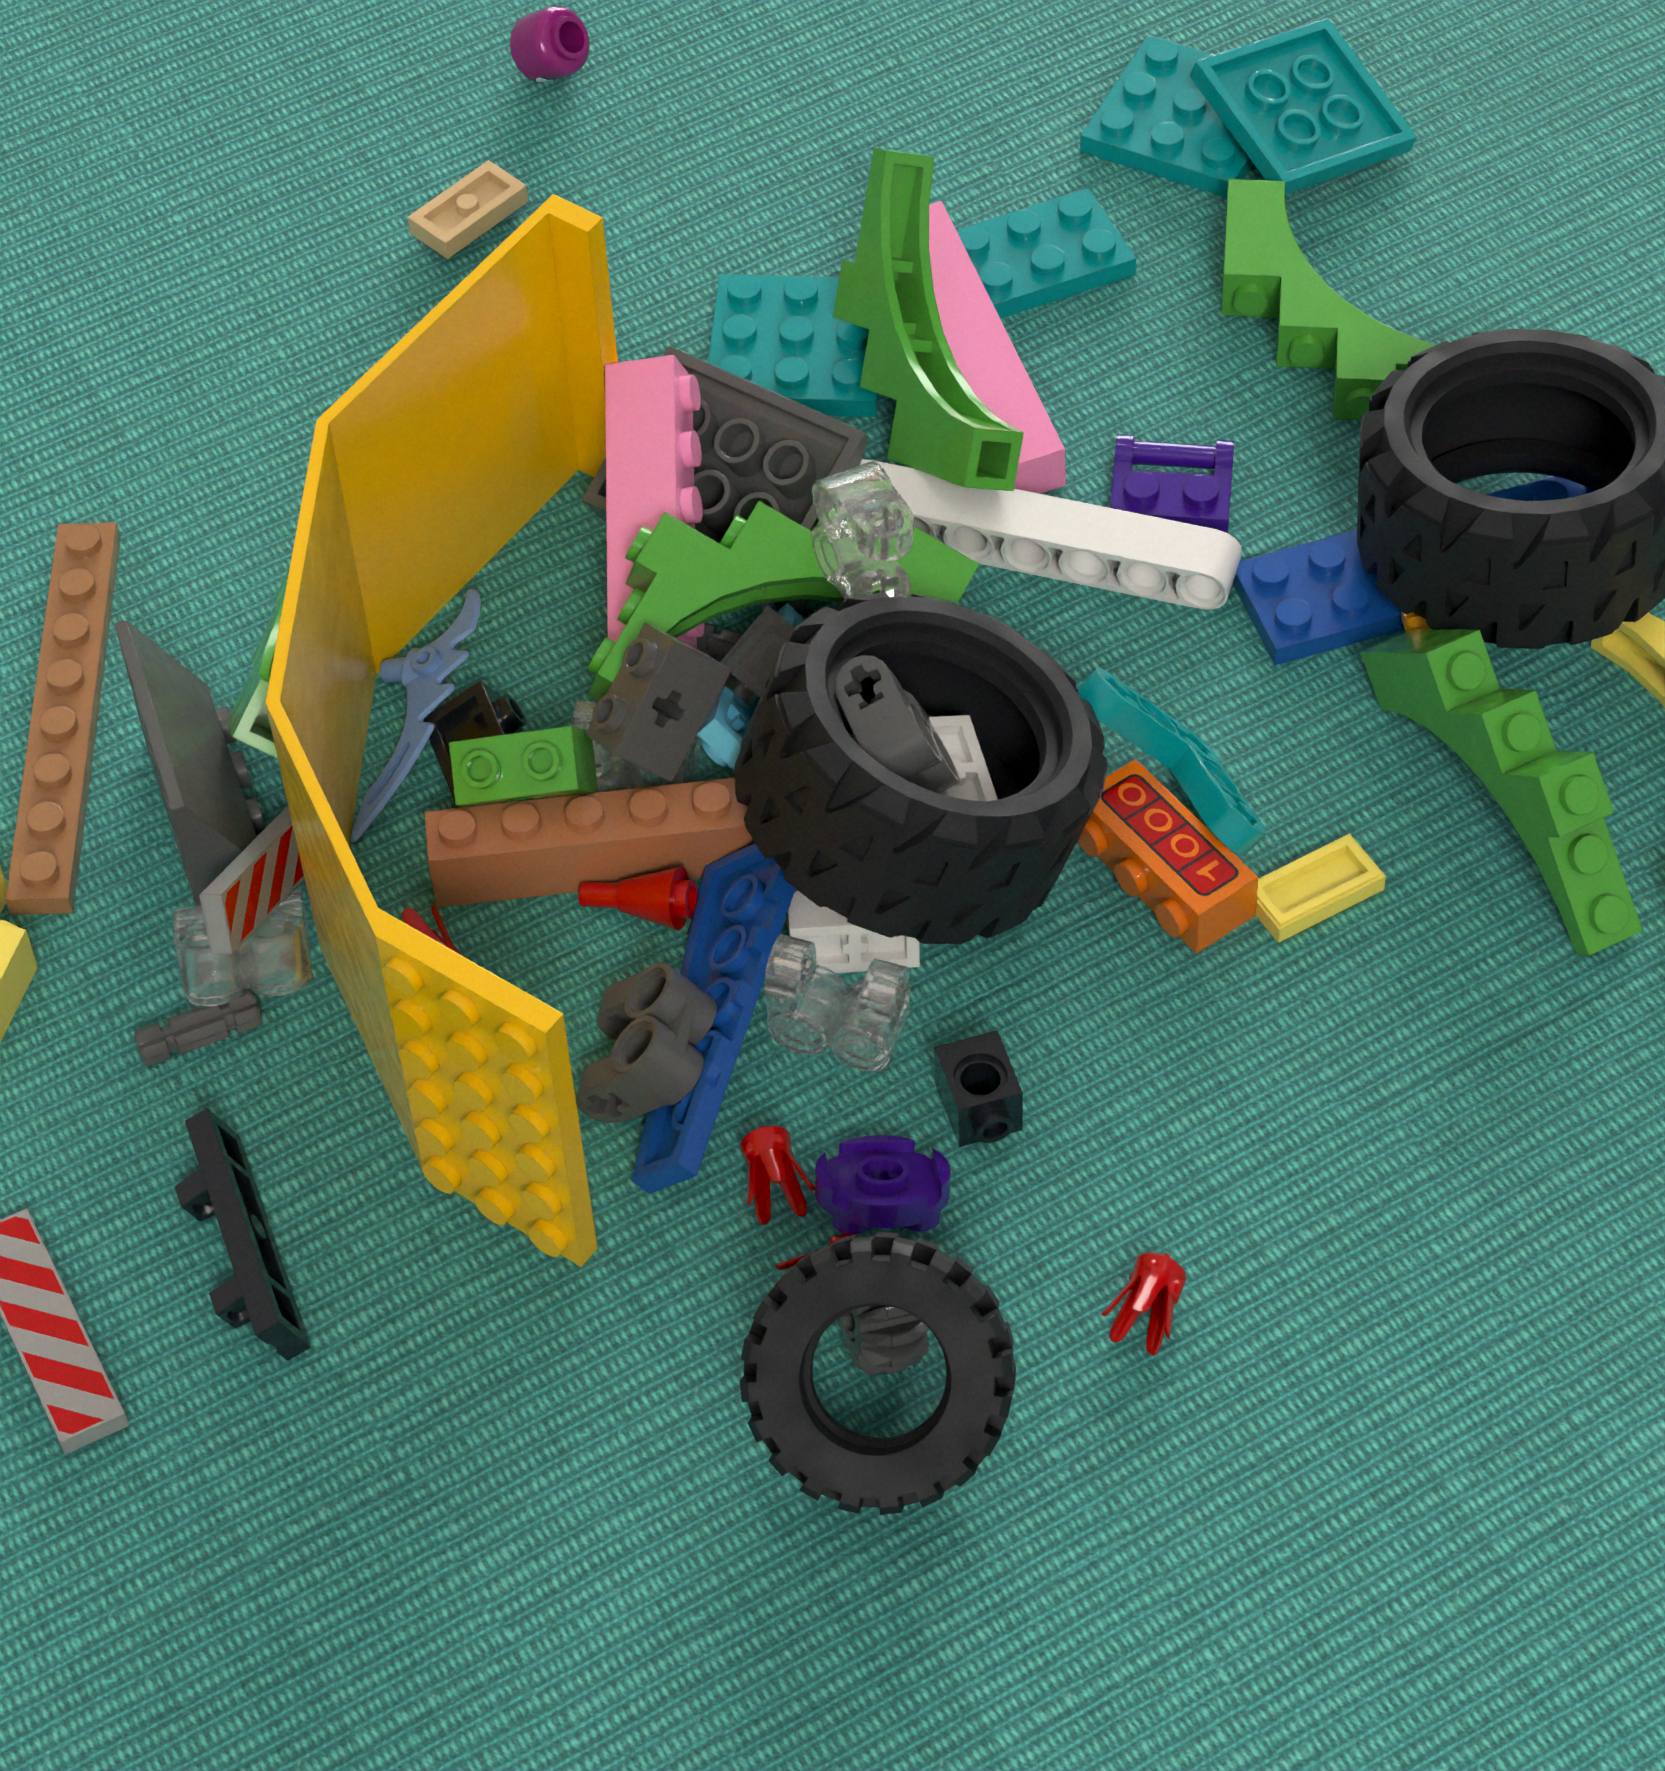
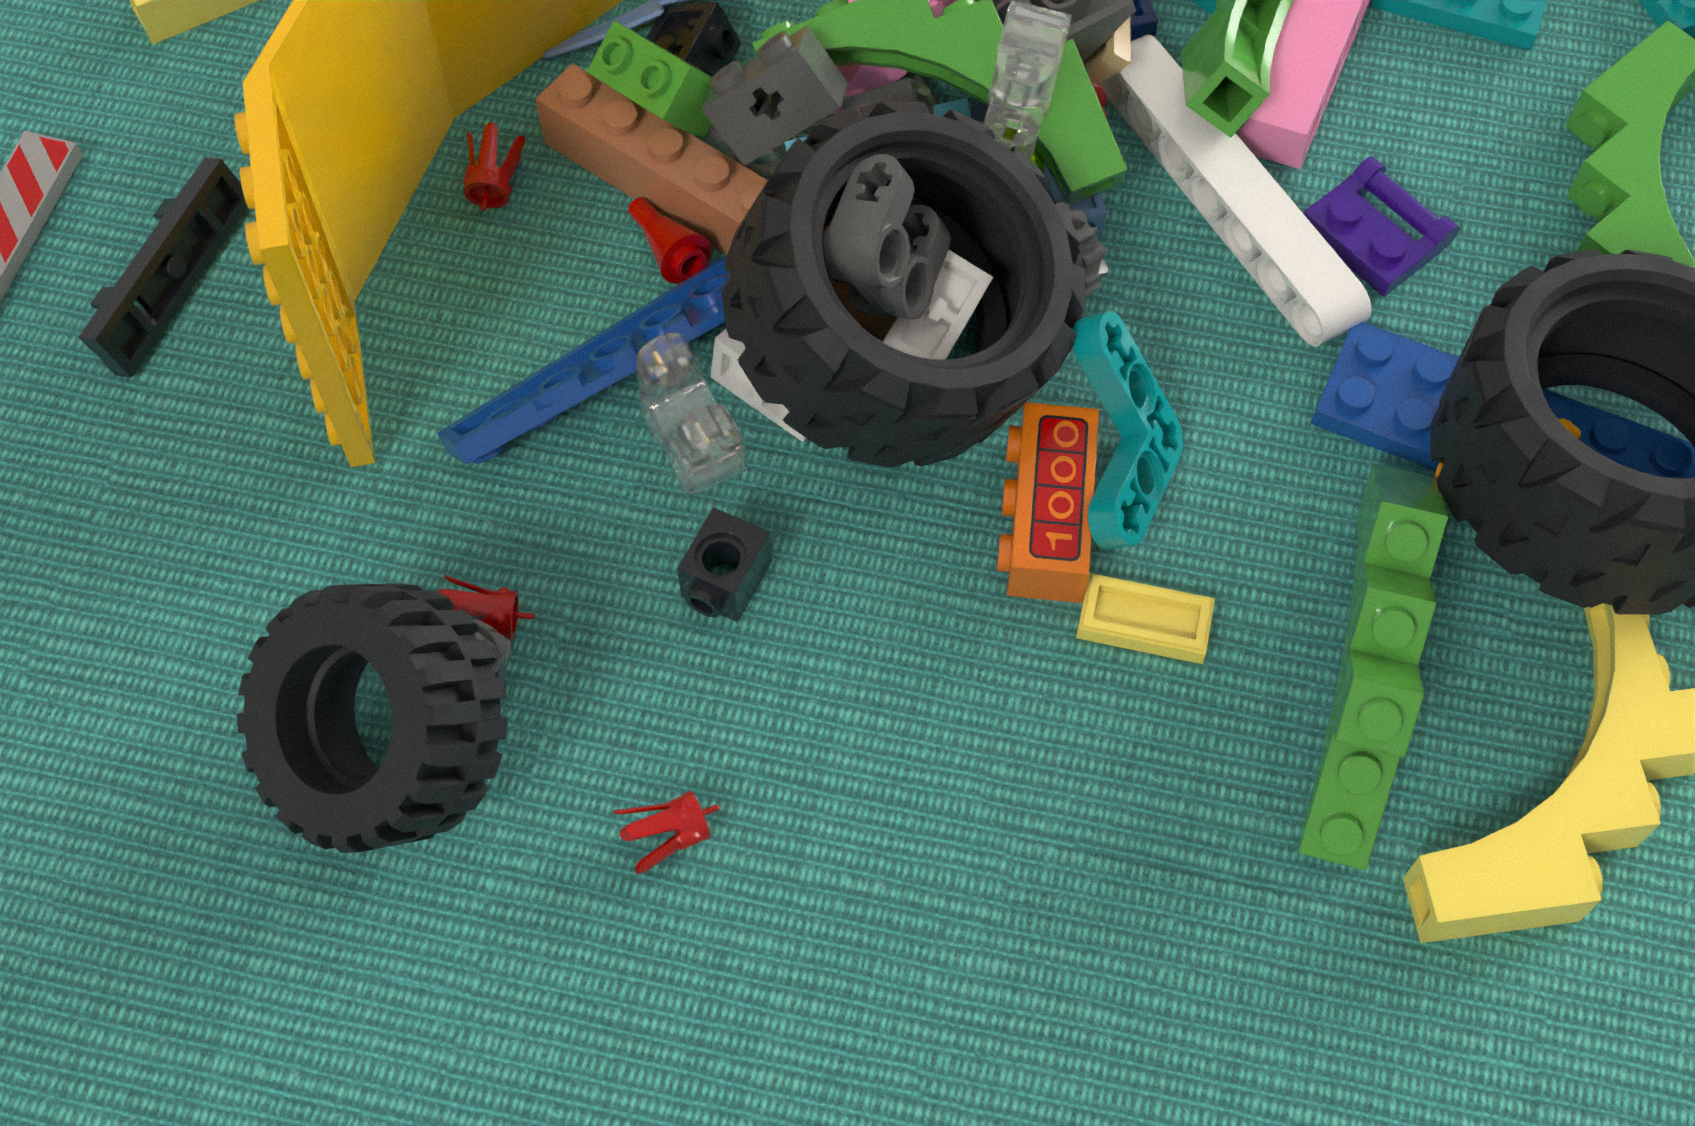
camera: 40 degrees right, 10 degrees up
(654, 1059) = (533, 350): dark grey piece -> none
(771, 1158) = (535, 490): red piece -> none
(882, 1185) = (567, 604): dark purple plate -> none

